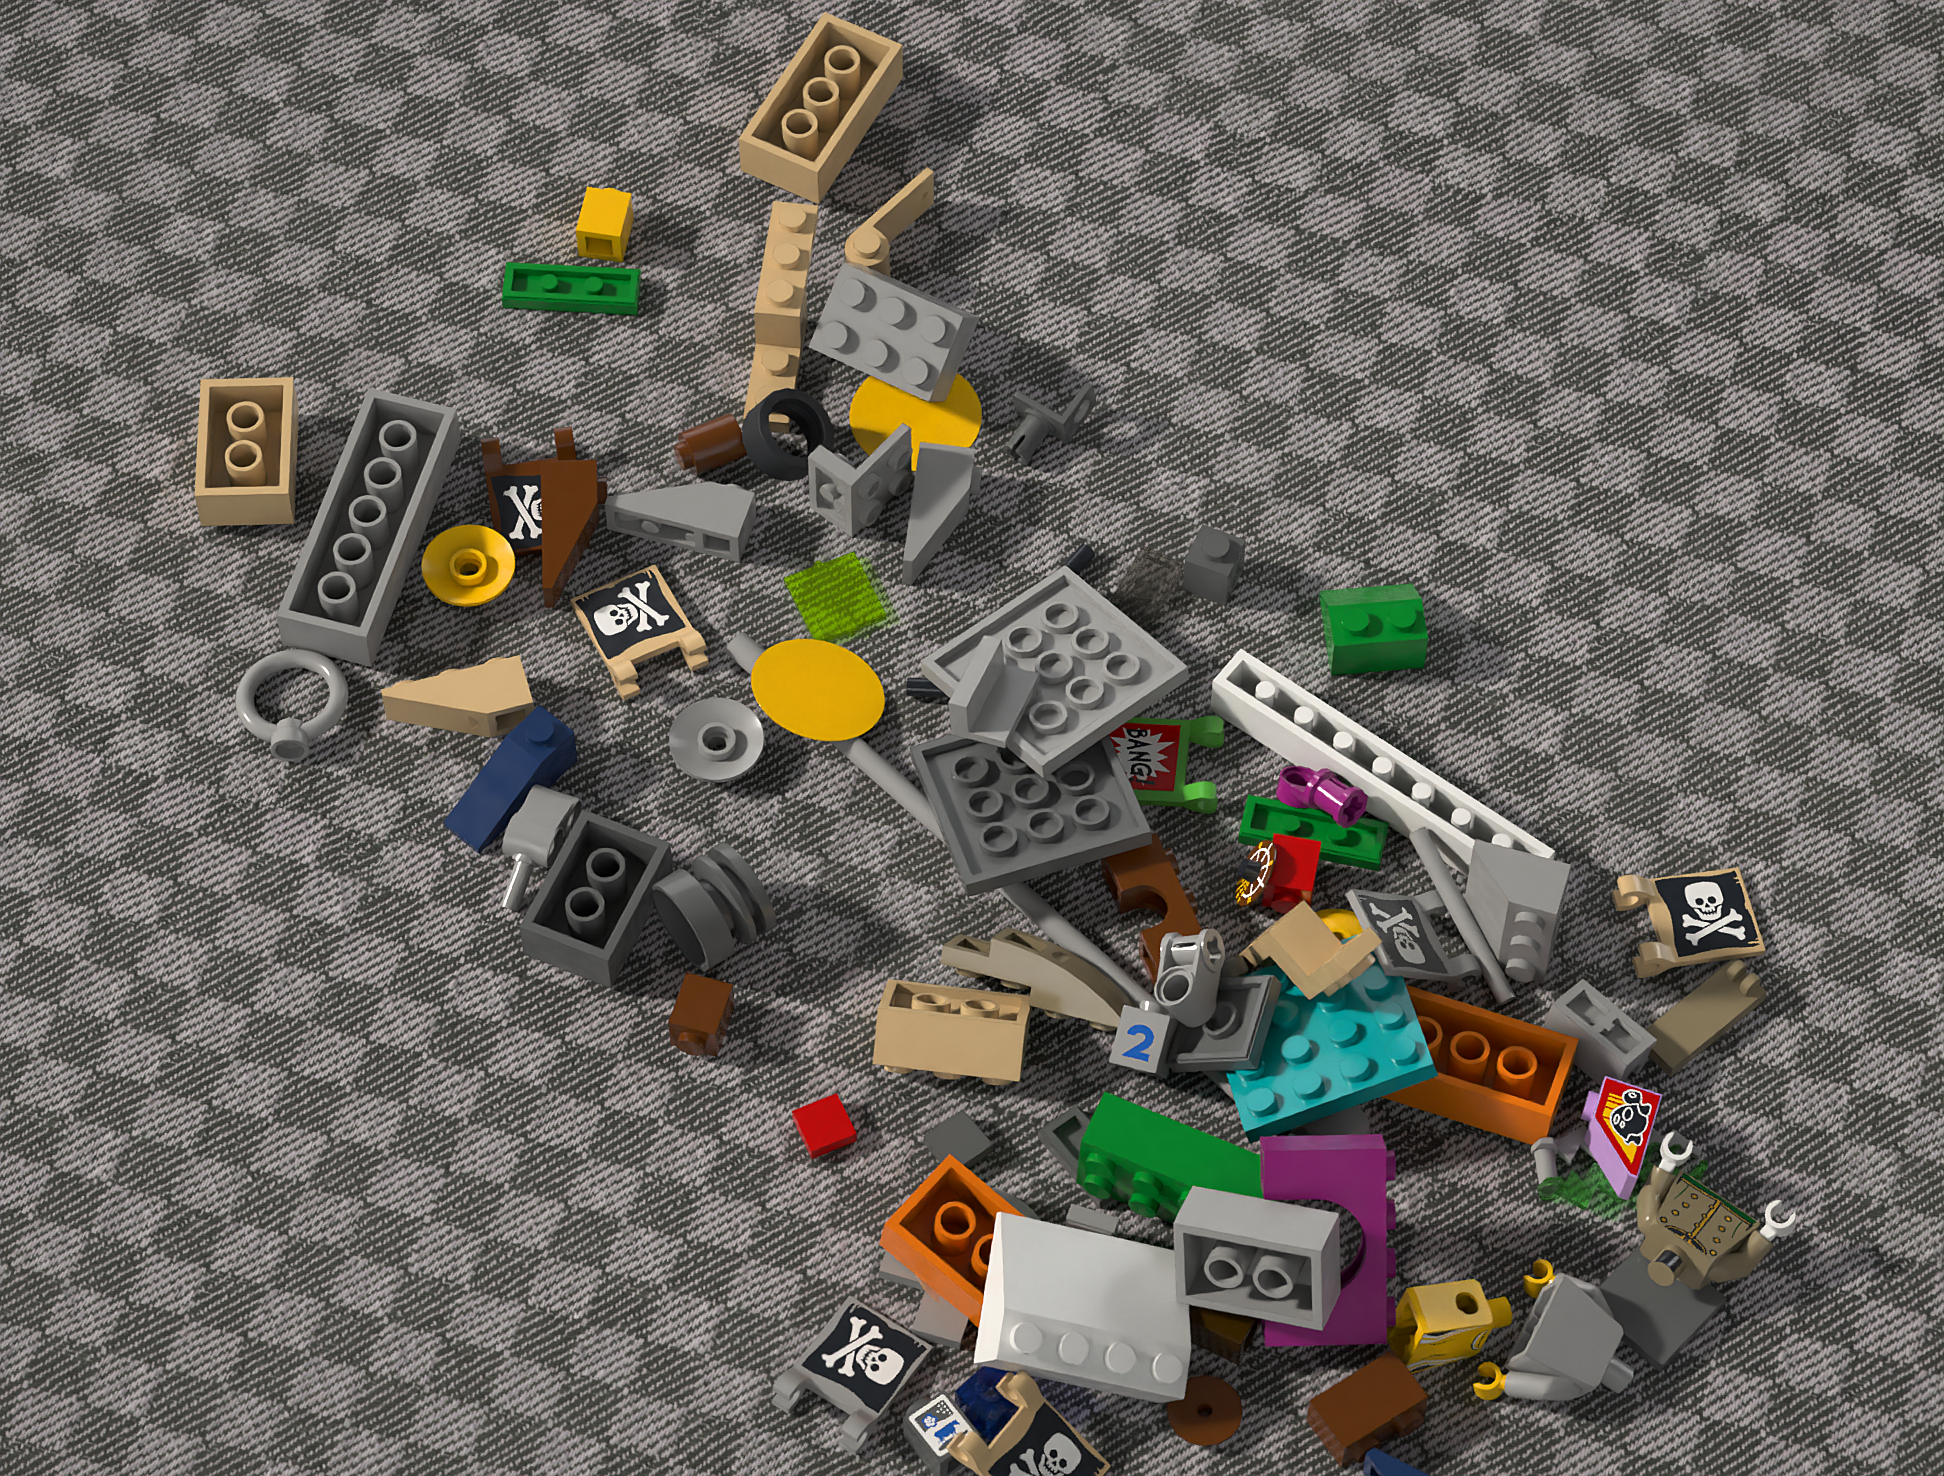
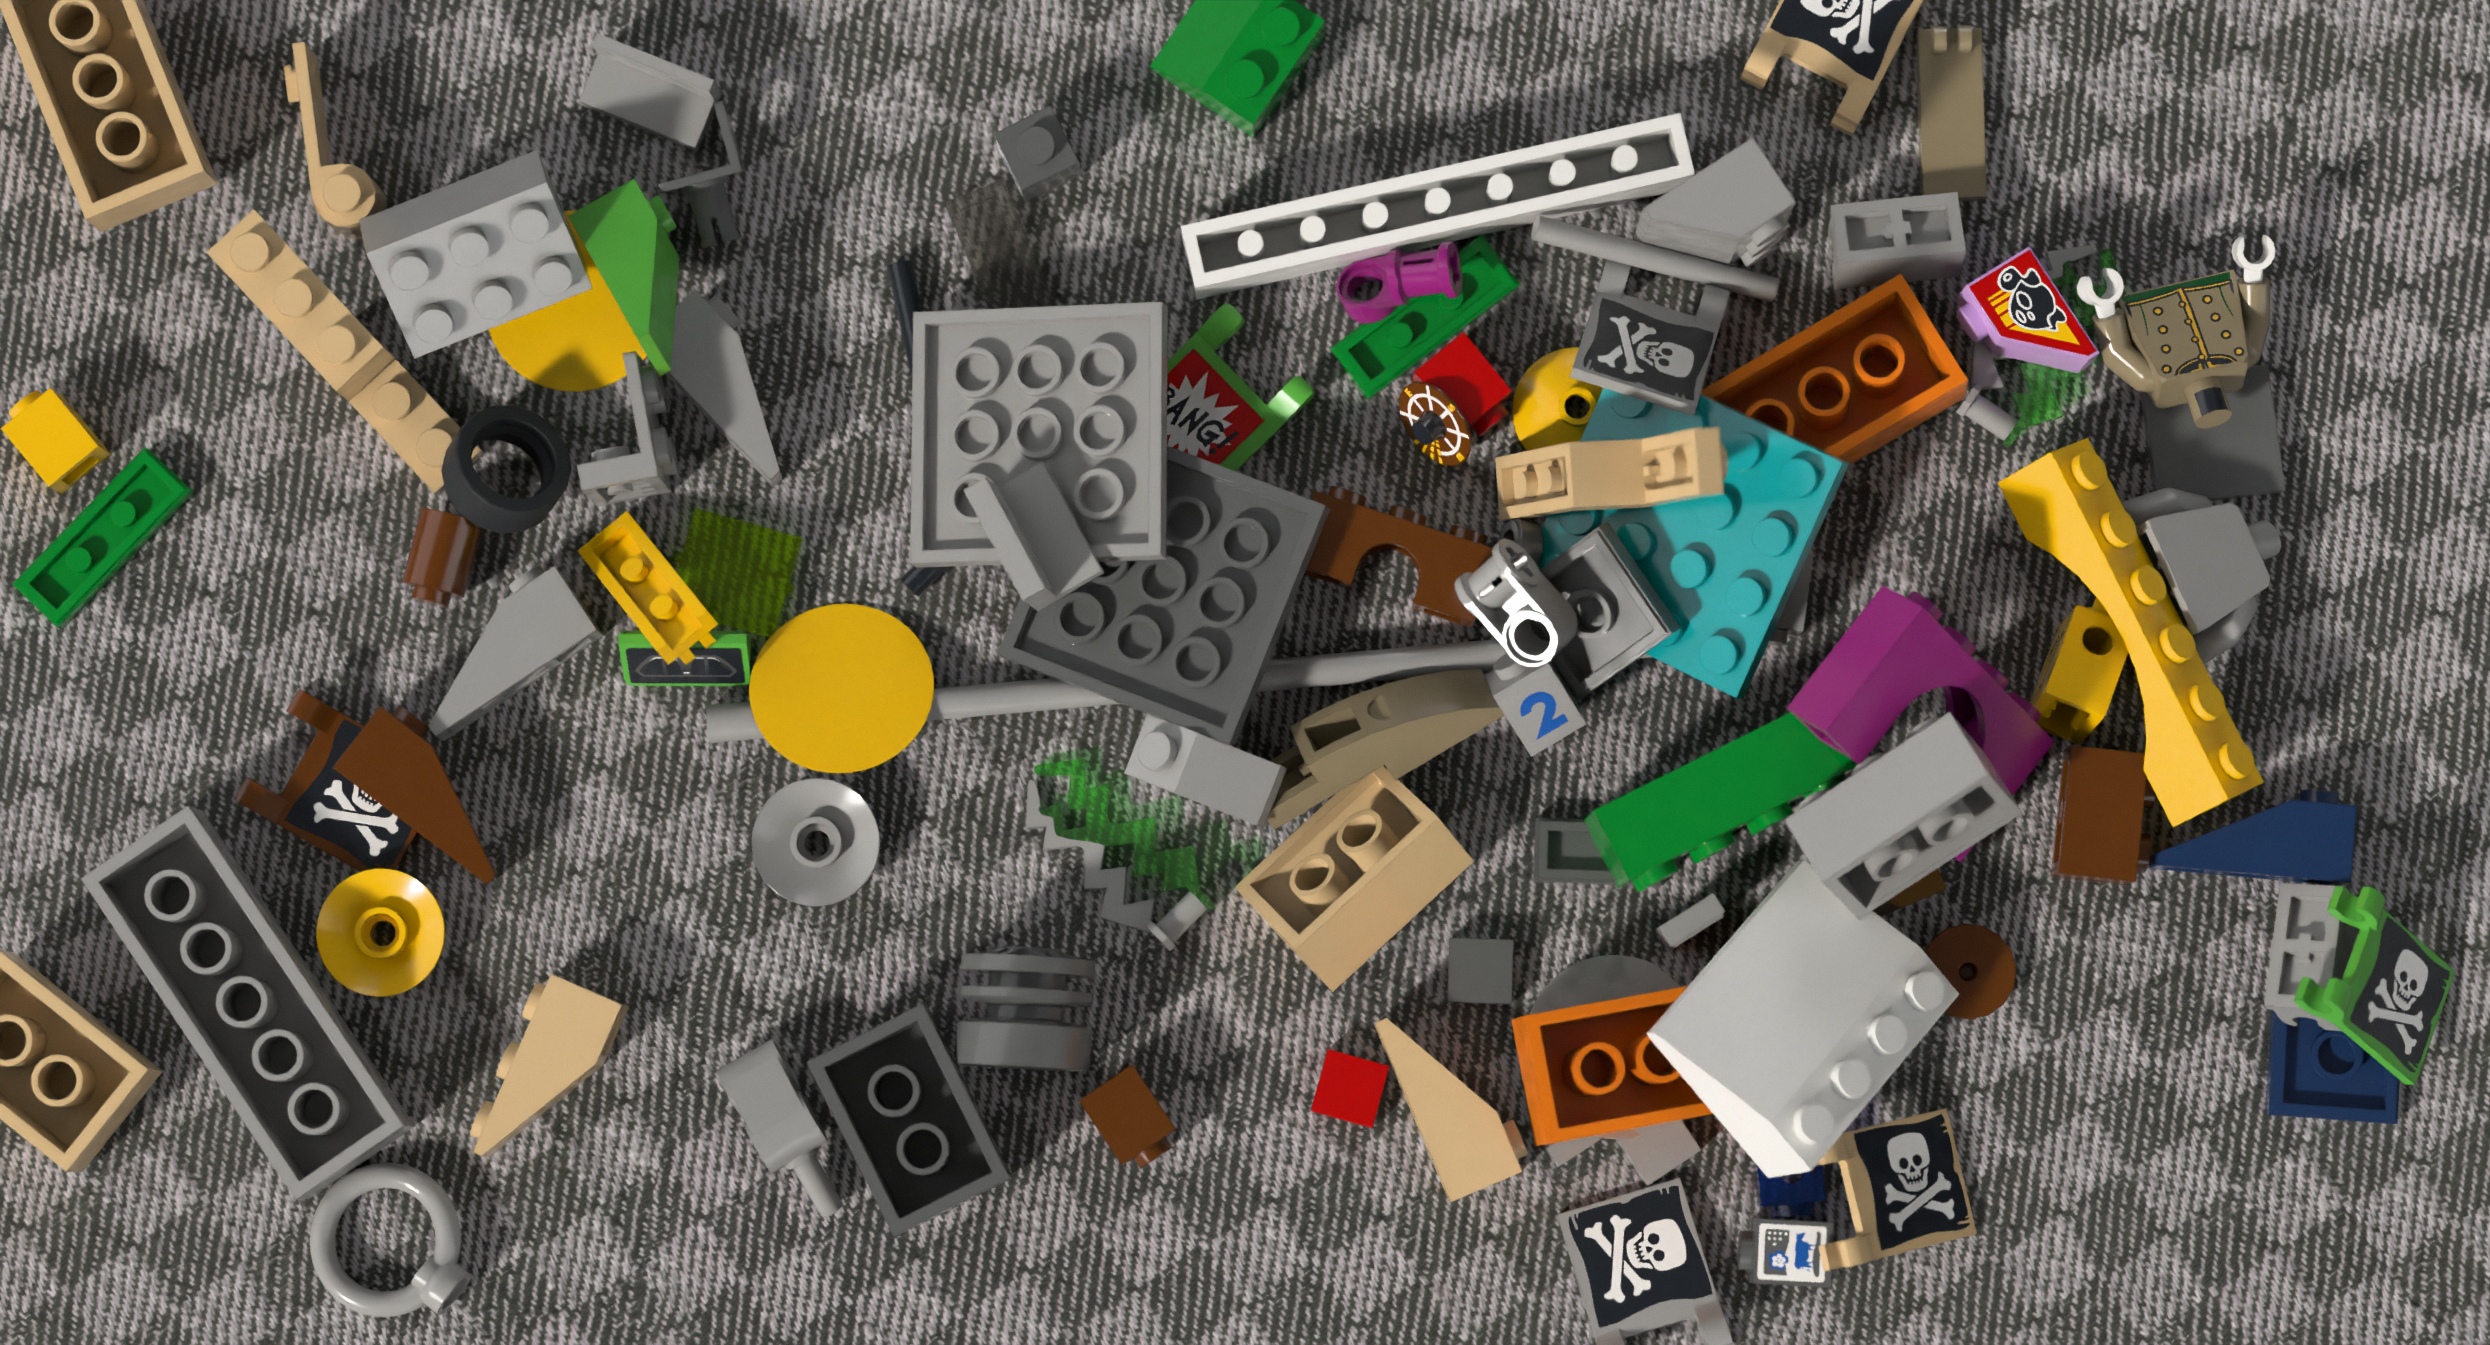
camera: 45 degrees left, 25 degrees up
(531, 754) = (686, 1093): dark blue slope -> none
(636, 622) = (595, 808): flag -> none
(763, 601) = (722, 664): none -> slope
(784, 550) = (649, 589): none -> yellow hinge
(848, 1201) = (1456, 1125): none -> tan slope
(872, 935) = (1101, 833): none -> piece
(940, 895) = (1205, 770): none -> light grey slope
(960, 410) = (636, 262): none -> bright green slope
(1064, 359) = (650, 93): none -> light grey panel
(1459, 1405) = (2191, 741): none -> yellow arch

